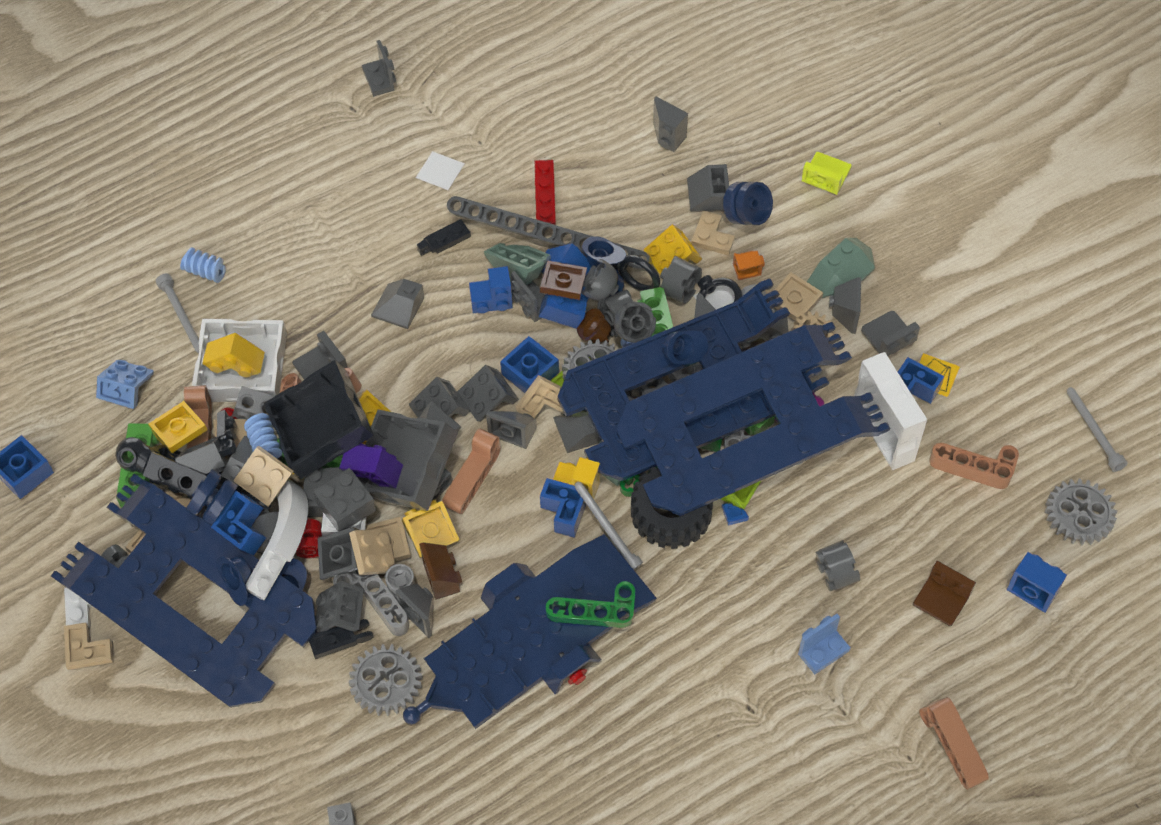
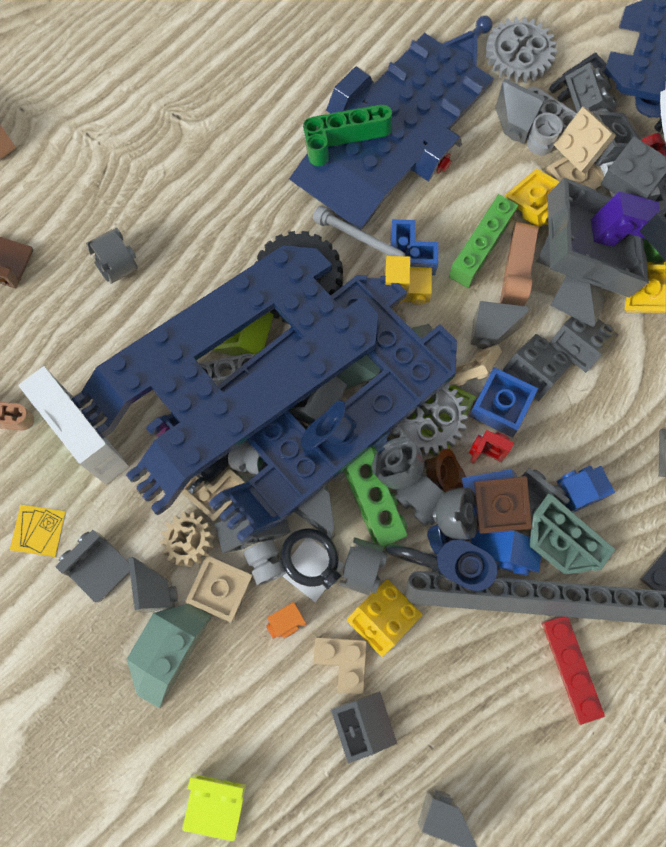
camera: 165 degrees right, 15 degrees up
(440, 570) = (512, 152): reddish brown slope -> none
(495, 501) = (483, 241): none -> bright green brick
(554, 336) = (491, 444): none -> red bracket
(748, 203) = (305, 706): dark blue wheel -> none
(822, 644) = (116, 180): medium blue bracket -> none
(920, 380) = (64, 498): blue brick -> none

